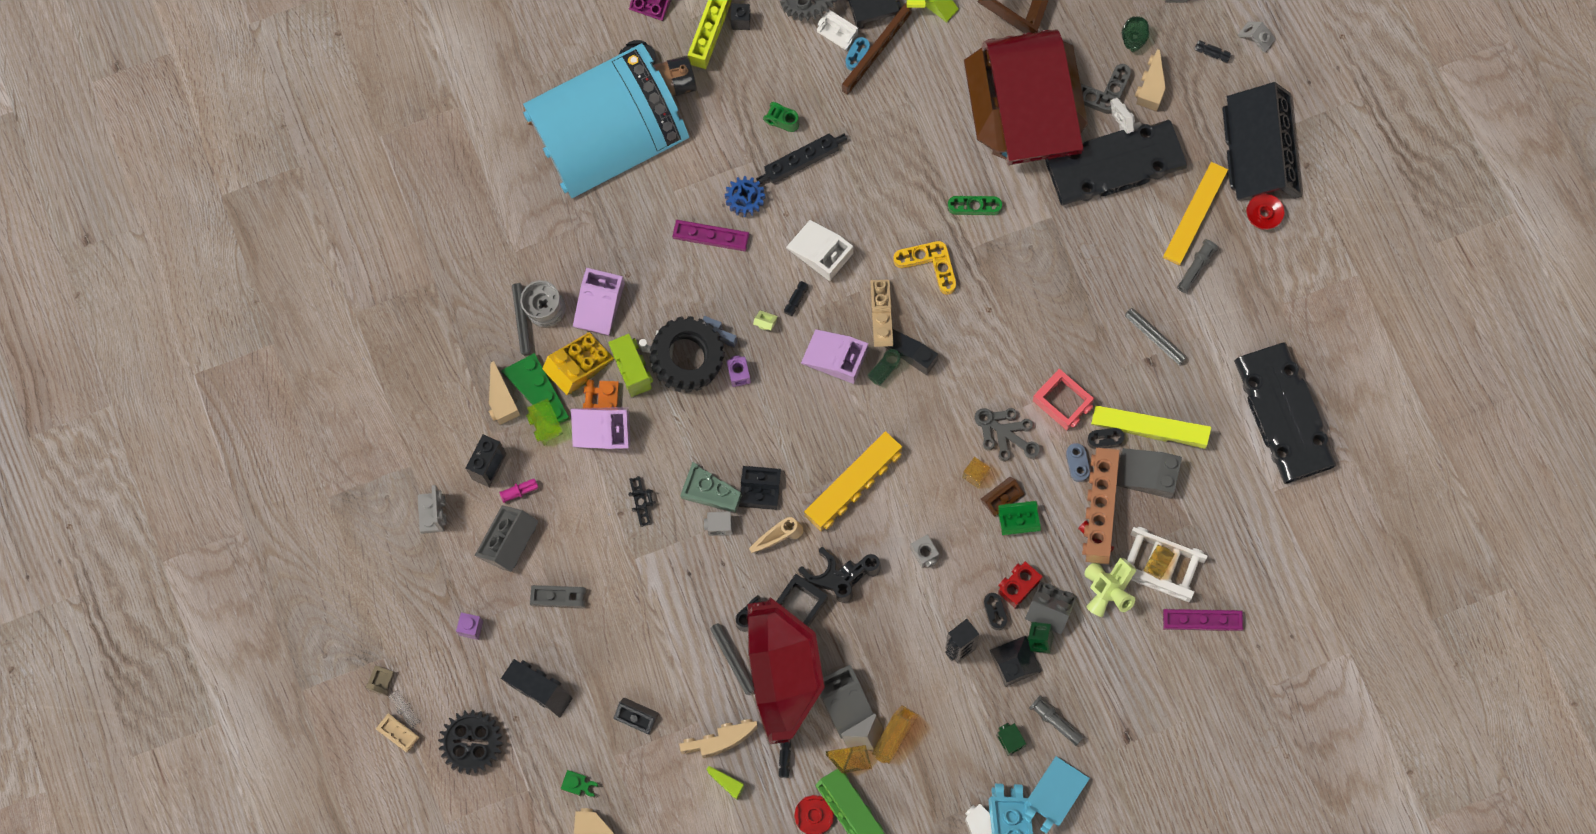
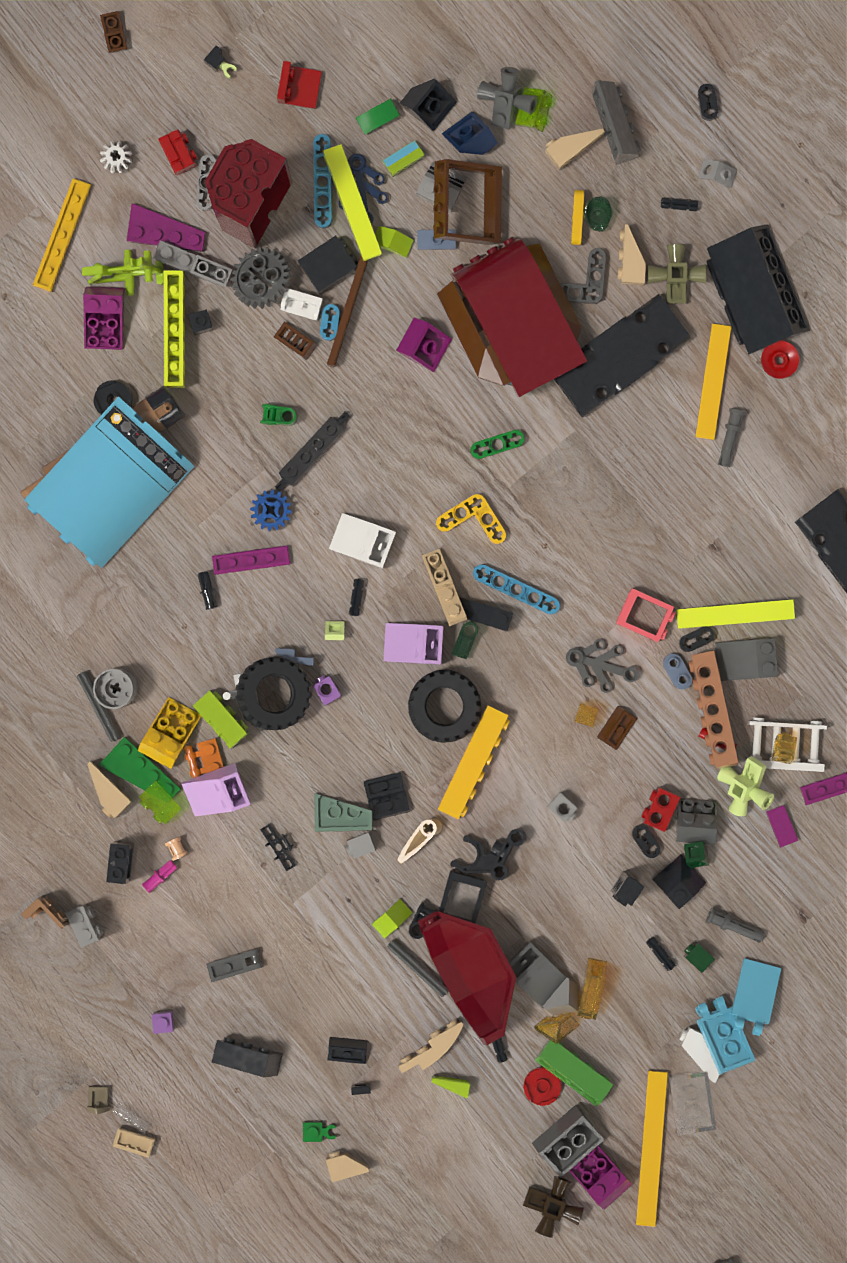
camera: 25 degrees left, 15 degrees up
(390, 479) = (47, 905): none -> medium nougat bracket
(468, 759) = (210, 1145): black gear -> none
(506, 538) = (165, 926): dark grey slope -> none
(544, 469) = (176, 848): none -> light nougat bush
(598, 301) = (167, 667): lavender slope -> none
(635, 756) = (361, 1089): none -> black tile
(660, 248) = (207, 590): none -> black axle
(724, 602) = (392, 918): none -> lime slope
(826, 70) = (308, 350): none -> reddish brown slope
(844, 395) = (444, 732): none -> black tyre
(937, 97) = (424, 344): none -> magenta slope
(950, 347) = (523, 596): none -> dark azure beam
(974, 724) = (660, 953): none -> black axle
(978, 14) = (426, 241): none -> sand blue plate
(1019, 518) = (640, 746): green bracket -> none
(1115, 33) = (577, 217): none -> yellow beam
(1123, 117) = (617, 311): white plate -> none
(1133, 641) = (781, 826): none -> magenta tile
(1155, 336) = (712, 521): axle -> none
(1191, 107) = (676, 274): none -> olive brick

